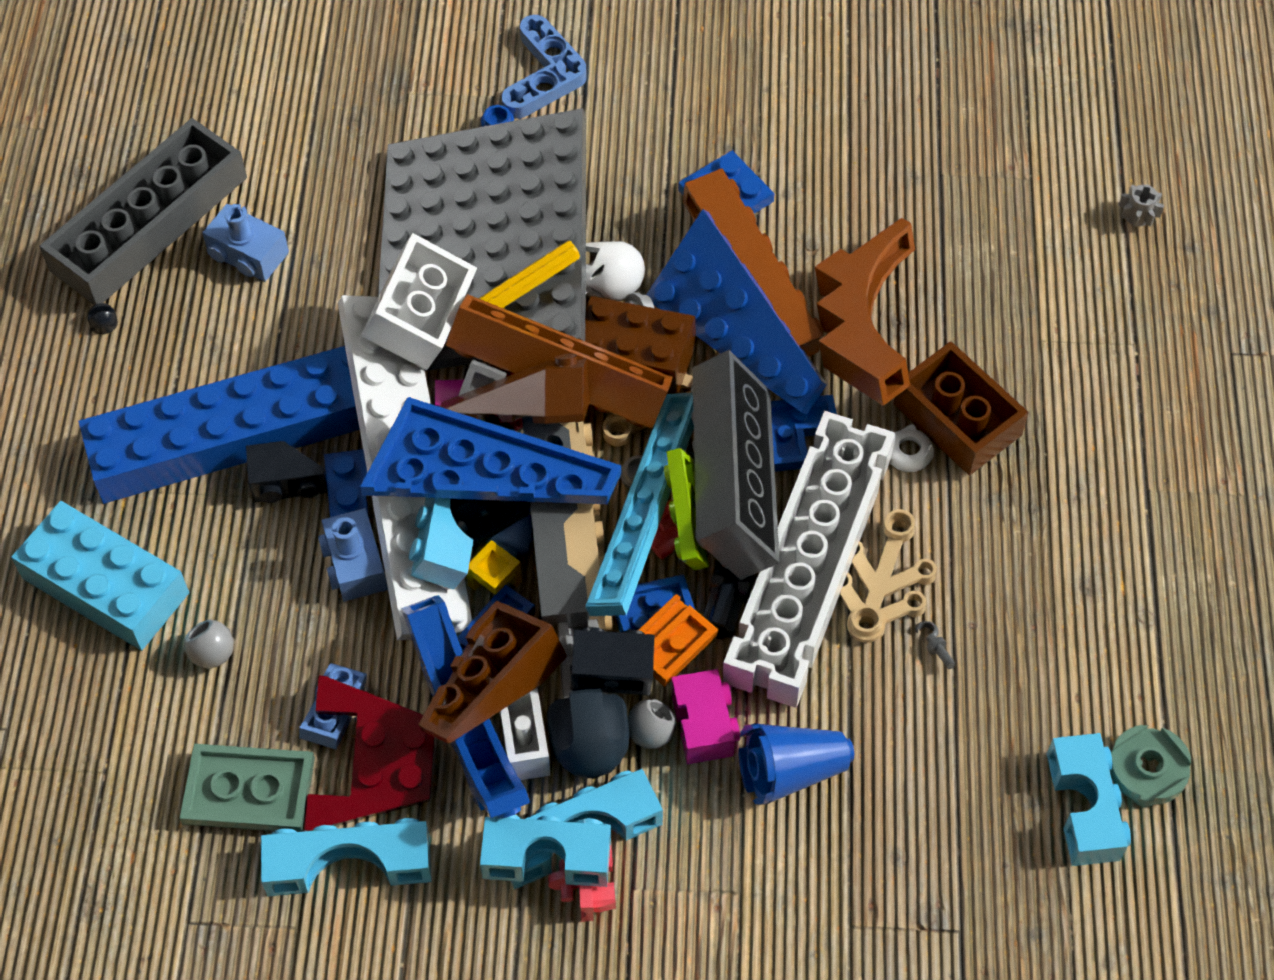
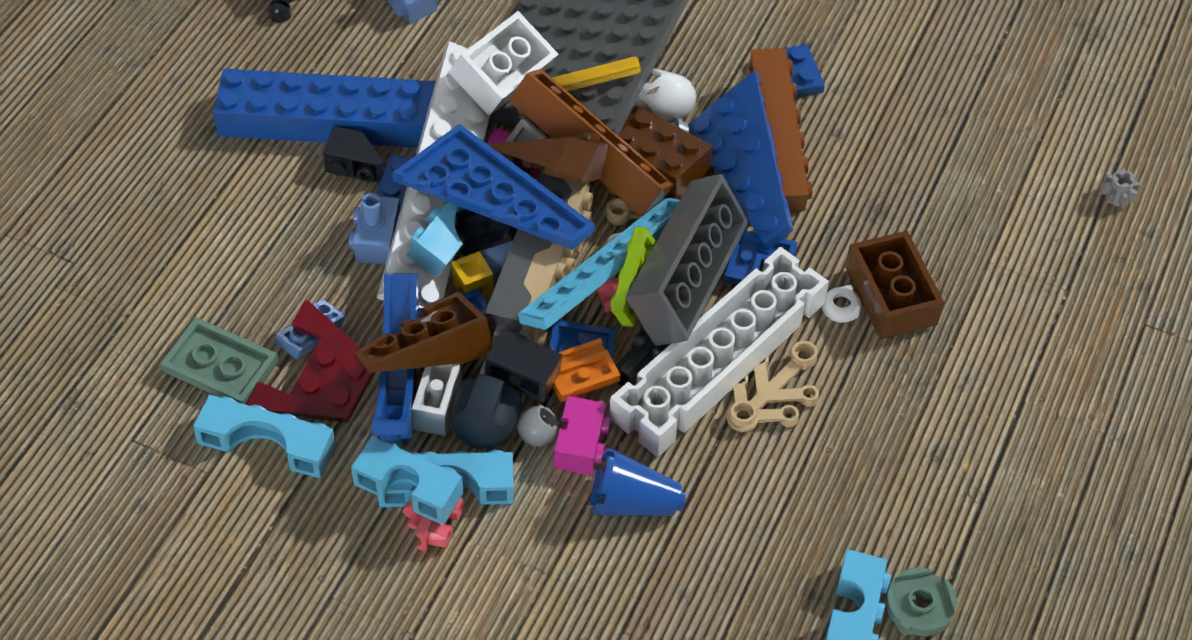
camera: 20 degrees right, 5 degrees down
(101, 575) = (189, 180): medium azure brick -> none
(209, 644) = (241, 254): light grey piece -> none
(849, 289) = (847, 173): dark orange arch -> none
(936, 644) = (791, 451): dark grey hand -> none

